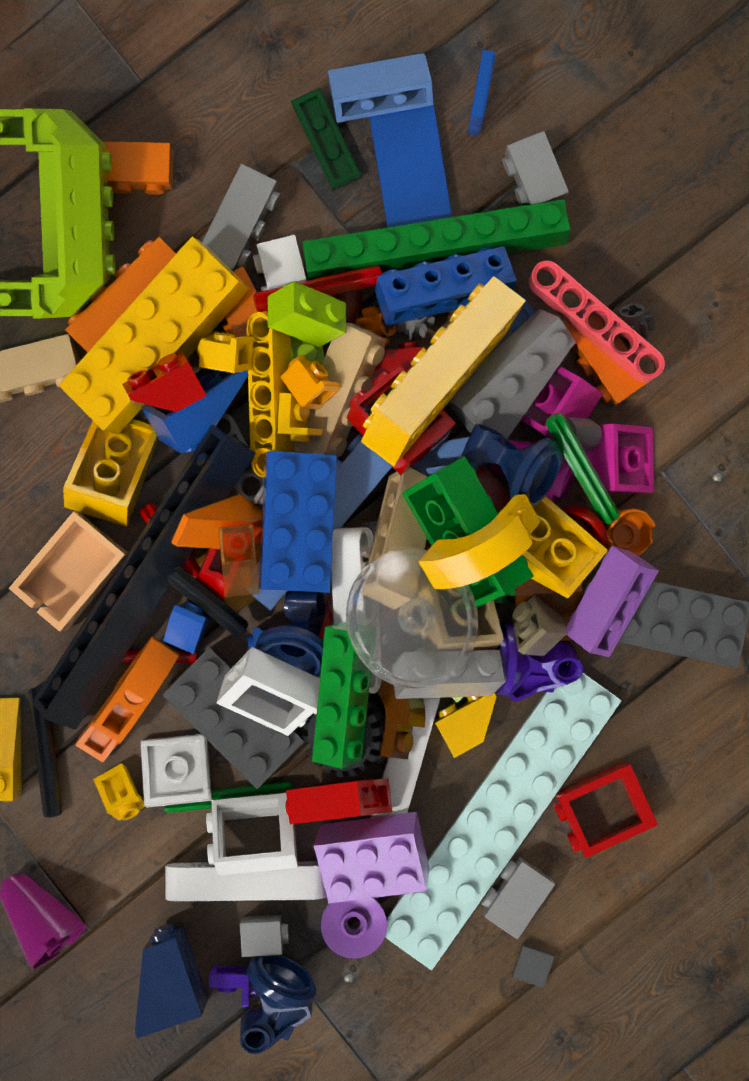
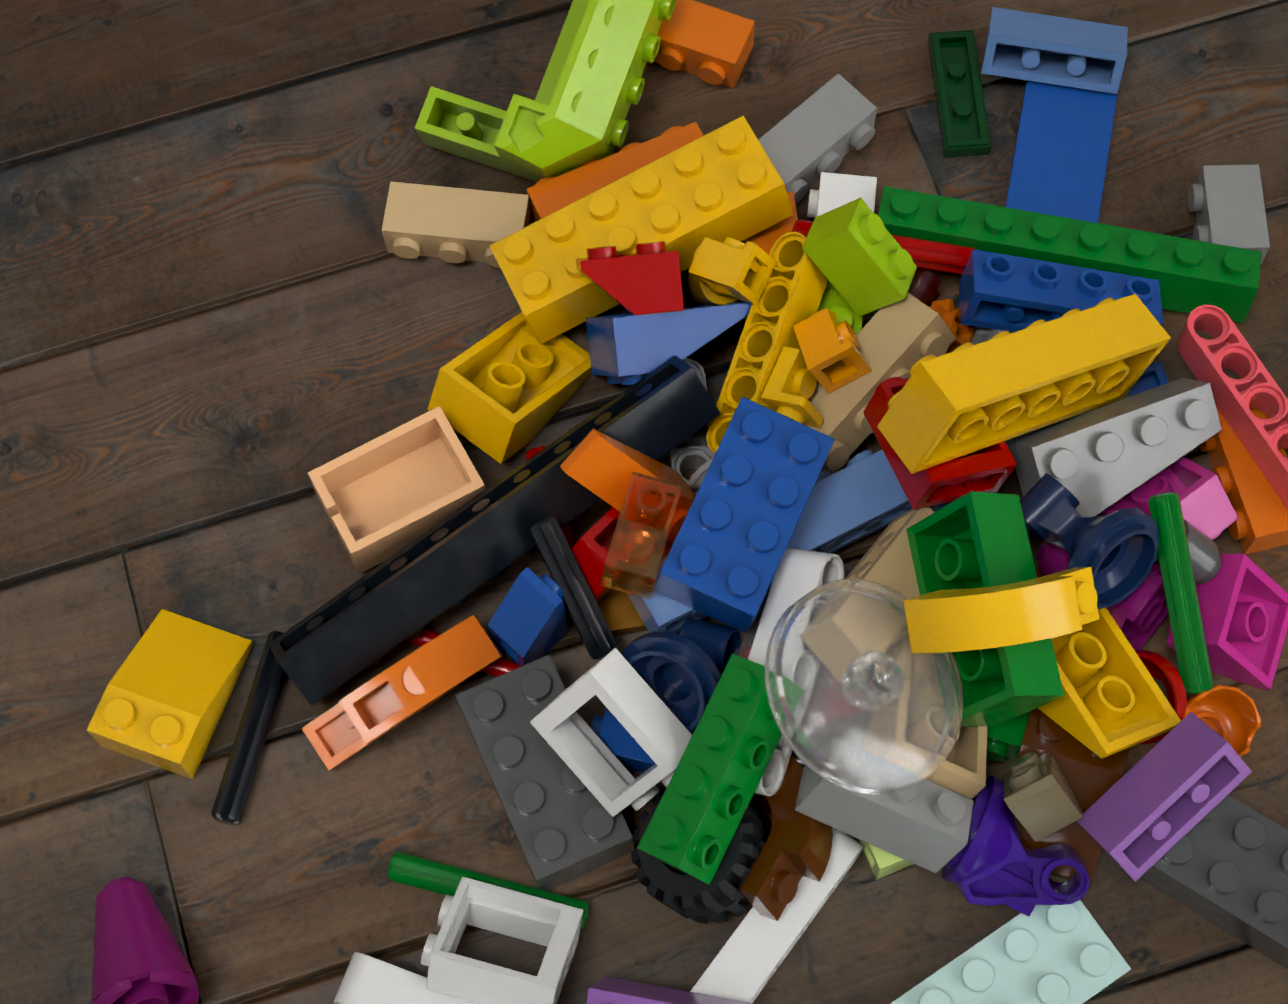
camera: 25 degrees right, 20 degrees down
(119, 793) = (333, 824): yellow bracket -> none
(175, 770) = (428, 820): white tile -> none
(338, 801) = (652, 939): red window -> none
(465, 725) = (881, 913): yellow slope -> none
(481, 92) = (1187, 94): blue tile -> none

